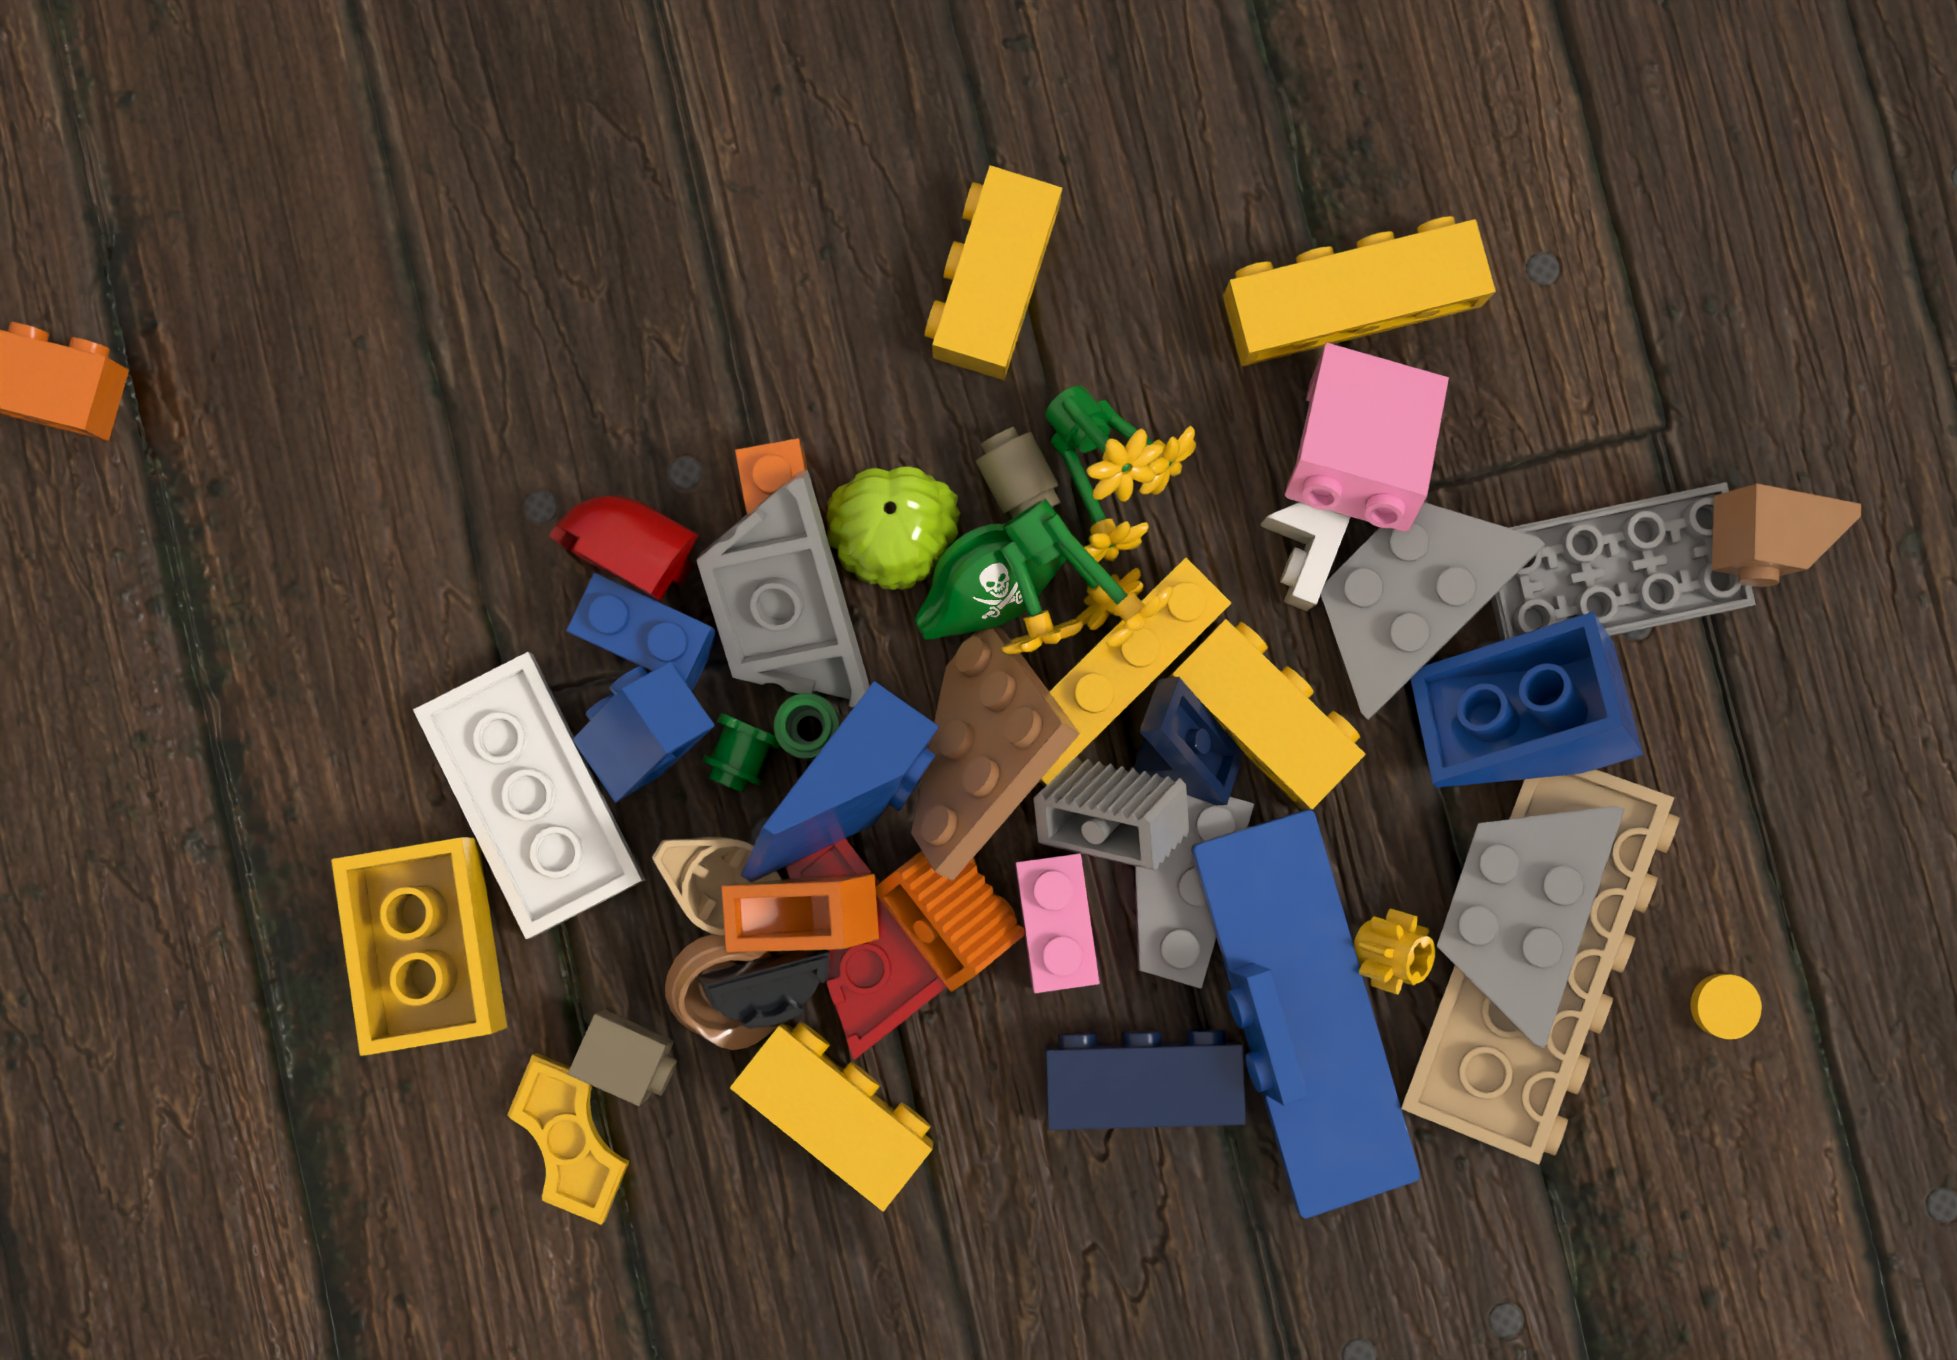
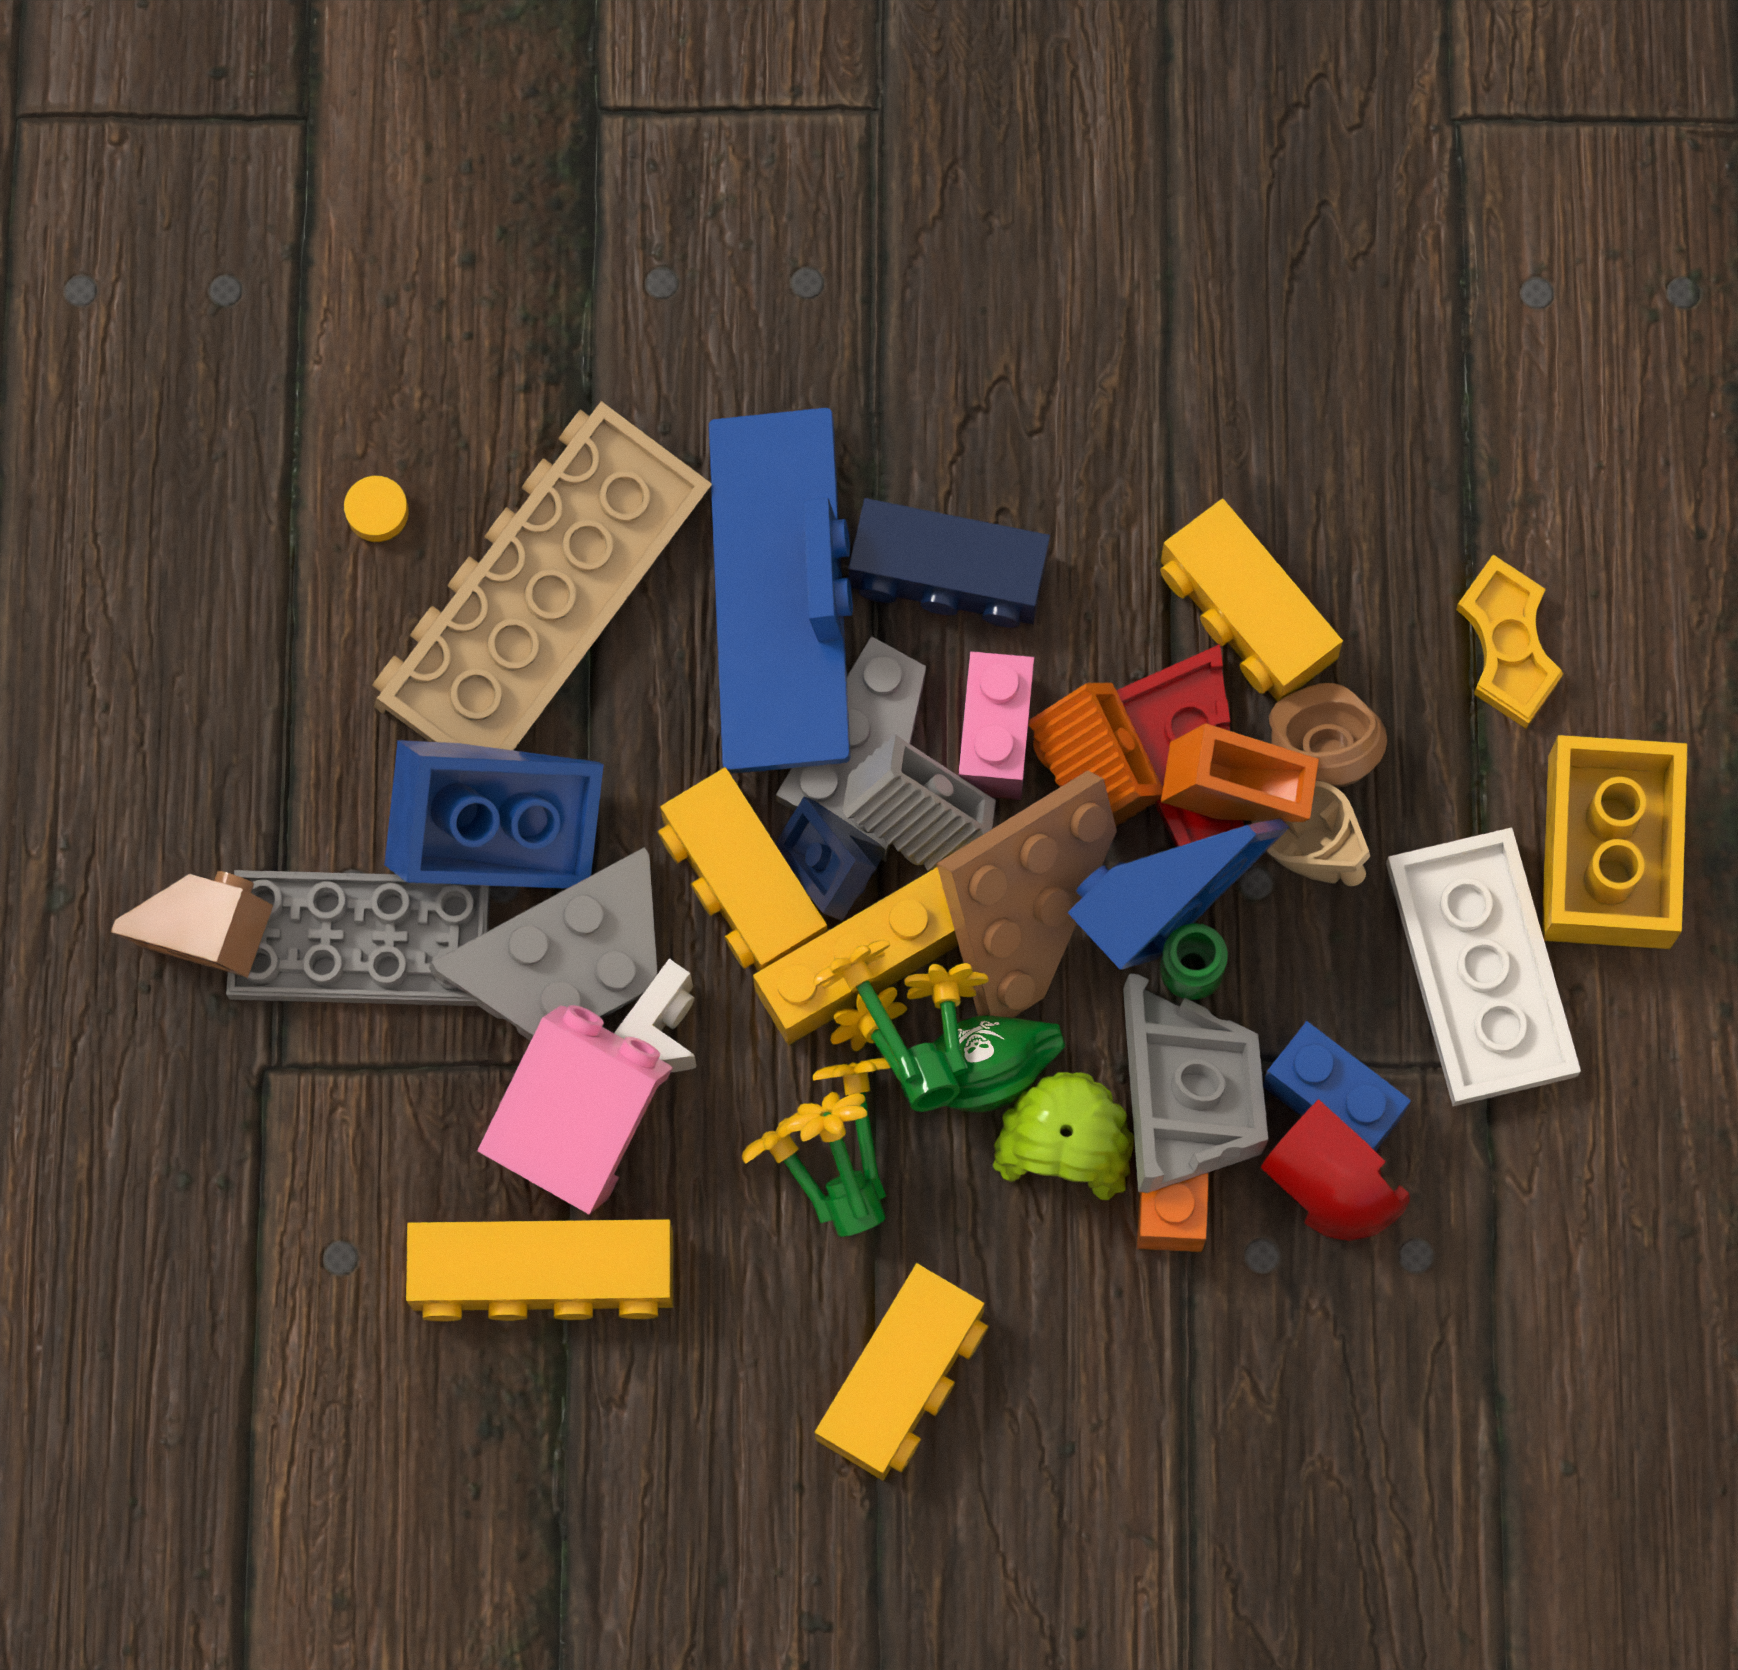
camera: 160 degrees left, 10 degrees down
(623, 1058) = (1439, 697): dark tan brick -> none
(641, 729) = (1357, 988): blue brick -> none
(739, 753) = (1266, 957): green brick -> none
(767, 989) = (1293, 720): black tile -> none
(1016, 472) = (927, 1163): dark tan brick -> none
(1394, 951) = (679, 625): yellow gear -> none
(1527, 909) = (546, 630): light grey wing -> none

